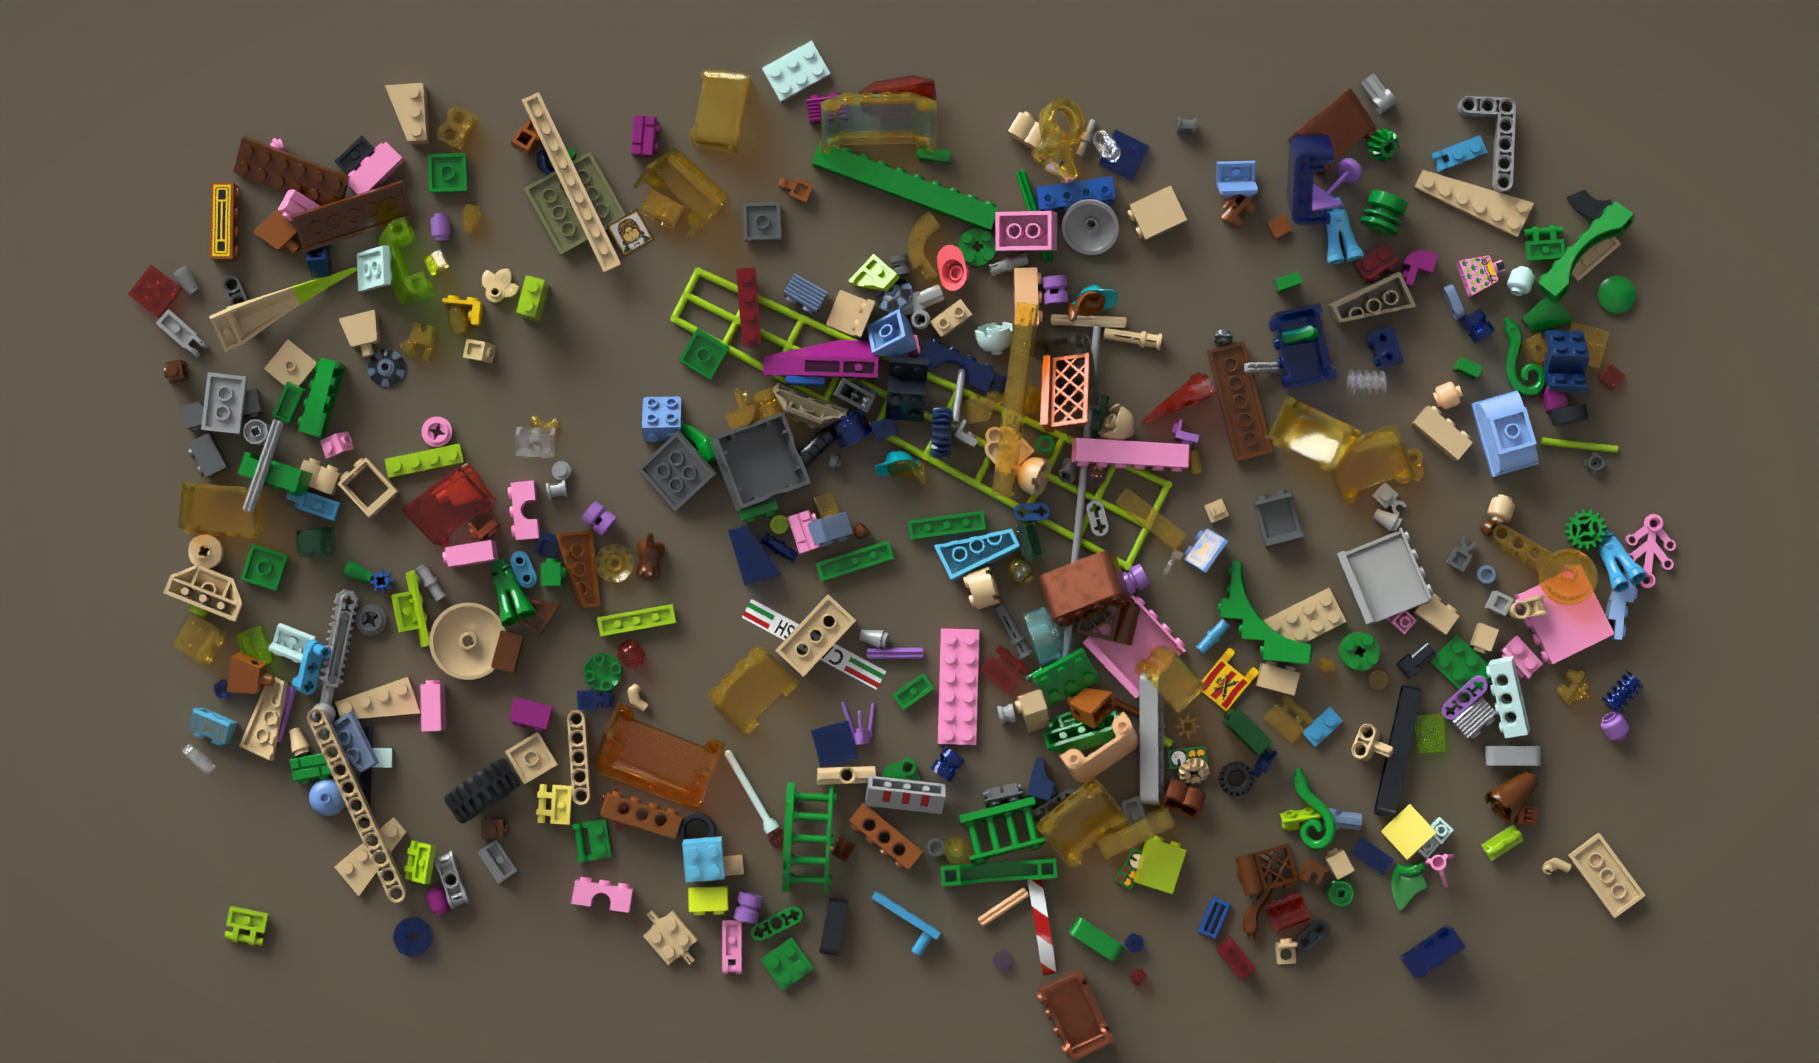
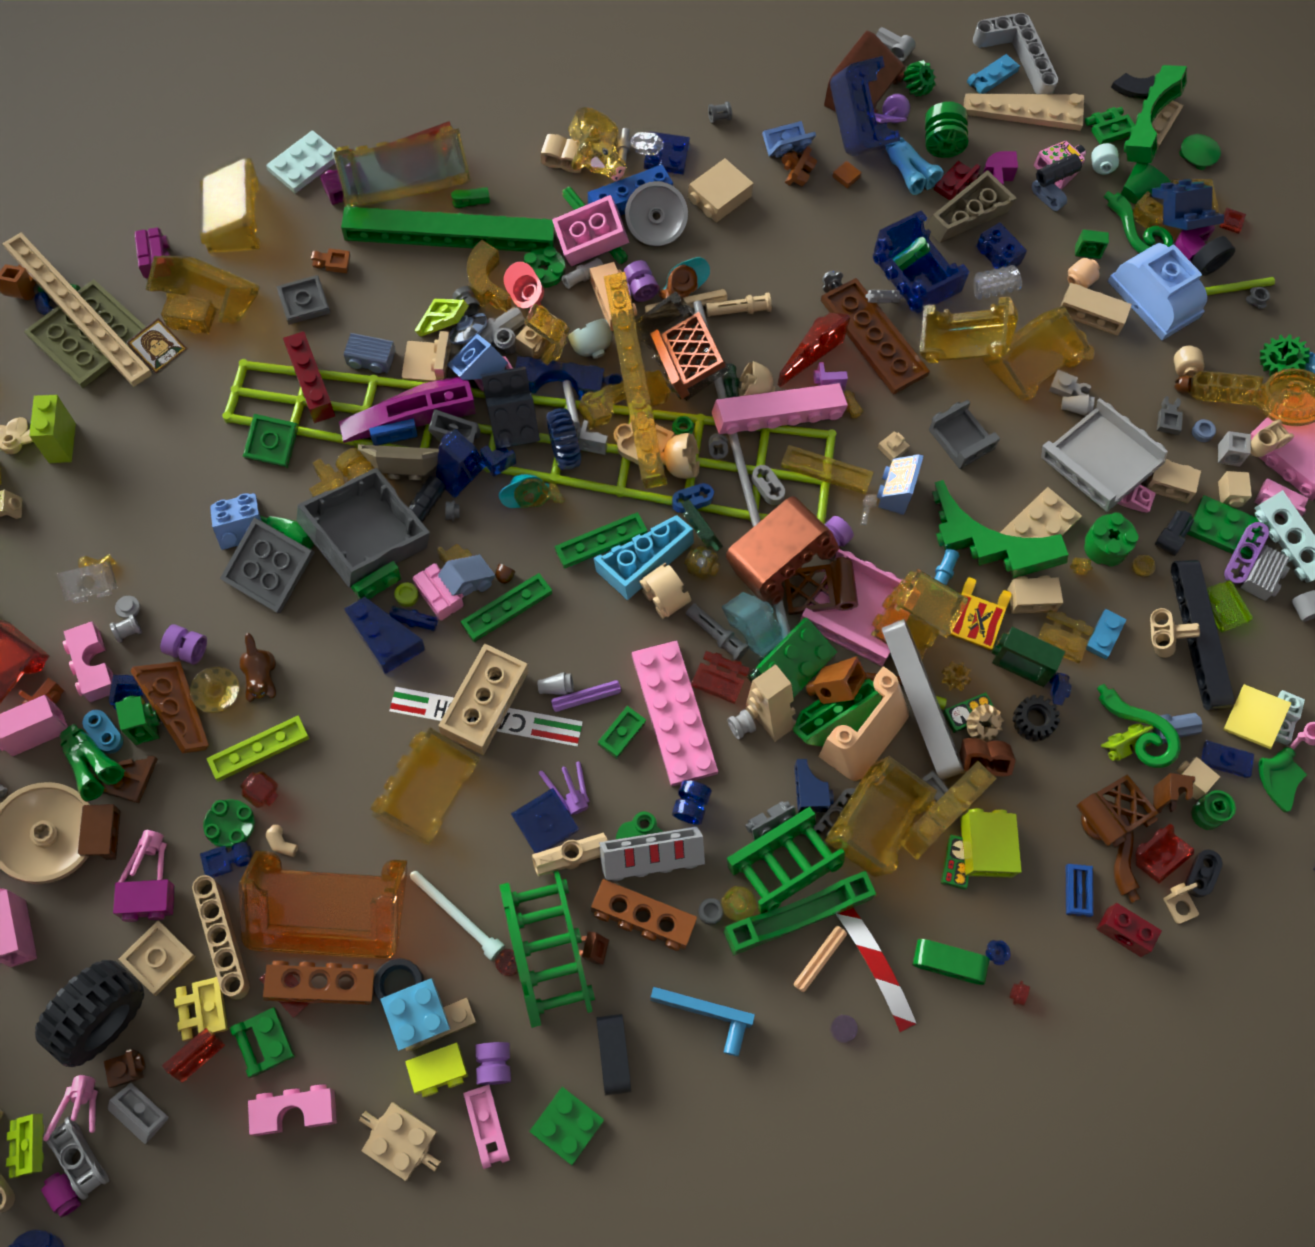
camera: 15 degrees left, 20 degrees down
(462, 837) = (80, 1092): none -> bright pink plant
(540, 838) = (193, 1055): none -> clear red plate
(541, 671) = (148, 844): none -> bright pink plant
(761, 925) = (556, 1065): green beam -> none
(958, 328) = (549, 328): none -> clear yellow bracket
(1075, 1014) = (963, 1067): copper windscreen -> none
(1096, 475) = (751, 442): tile -> none
(1287, 282) = (877, 215): green piece -> none
(1465, 290) = (1059, 170): none -> black axle
(1477, 325) = (1081, 204): clear blue wheel -> none

